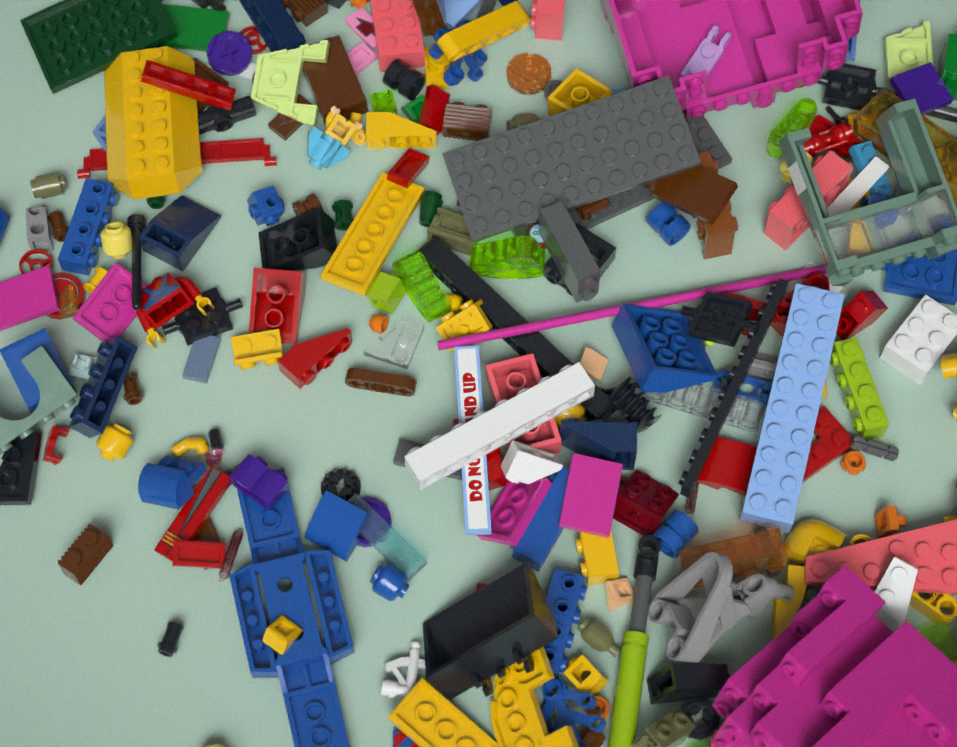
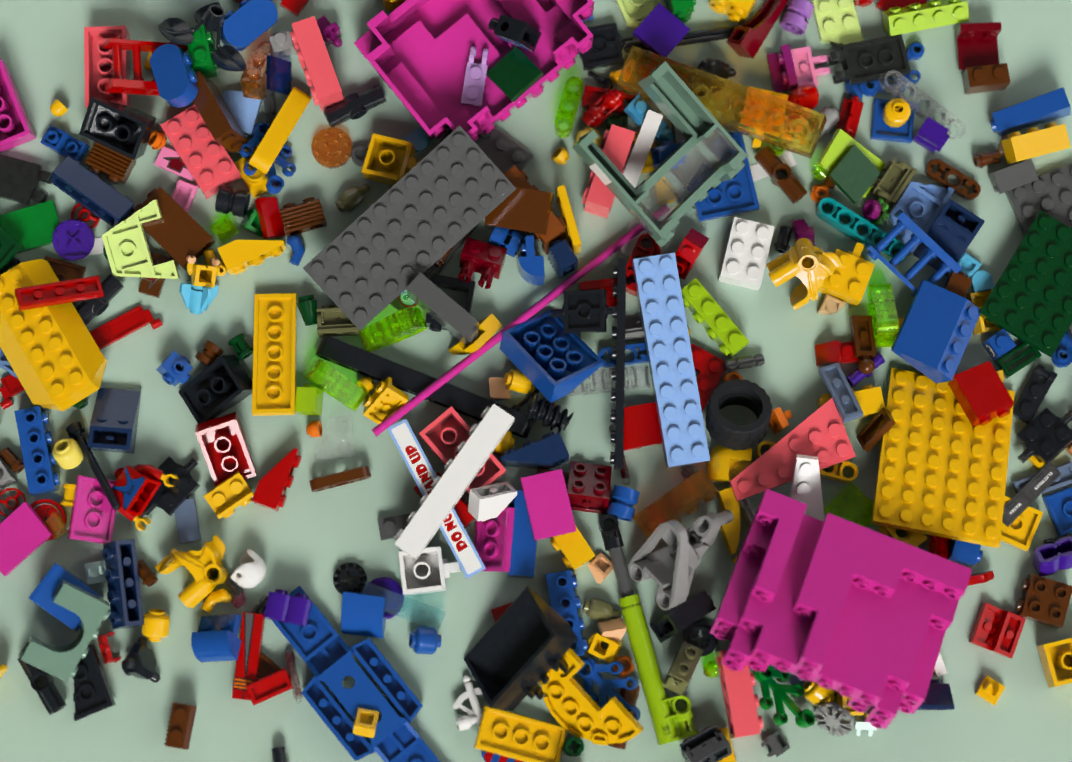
camera: 30 degrees left, 15 degrees up
(79, 472) = (141, 662): none -> black rock
(195, 405) = (201, 566): none -> yellow helmet
(241, 430) = (251, 570): none -> white helmet
(408, 168) = (274, 281): red tile -> none
(424, 511) = (426, 573): none -> white hinge
(448, 144) = (297, 247): none -> blue arm
(570, 44) = (354, 106): none -> black piece
(603, 661) = (612, 628): none -> light nougat slope
(605, 298) = (487, 329): none -> yellow slope
(616, 364) = (518, 382): none -> yellow brick
(633, 230) = (483, 259): none -> dark red brick
(683, 253) = (531, 266): none -> blue brick
(719, 261) = (562, 258): none -> dark blue brick
(741, 235) = (567, 215): none -> yellow tile
(748, 66) = (514, 74): none -> dark green tile
(762, 171) = (560, 156): none -> yellow hinge
(768, 25) = (515, 32): none -> black torso
(840, 512) = (738, 393): none -> black tyre

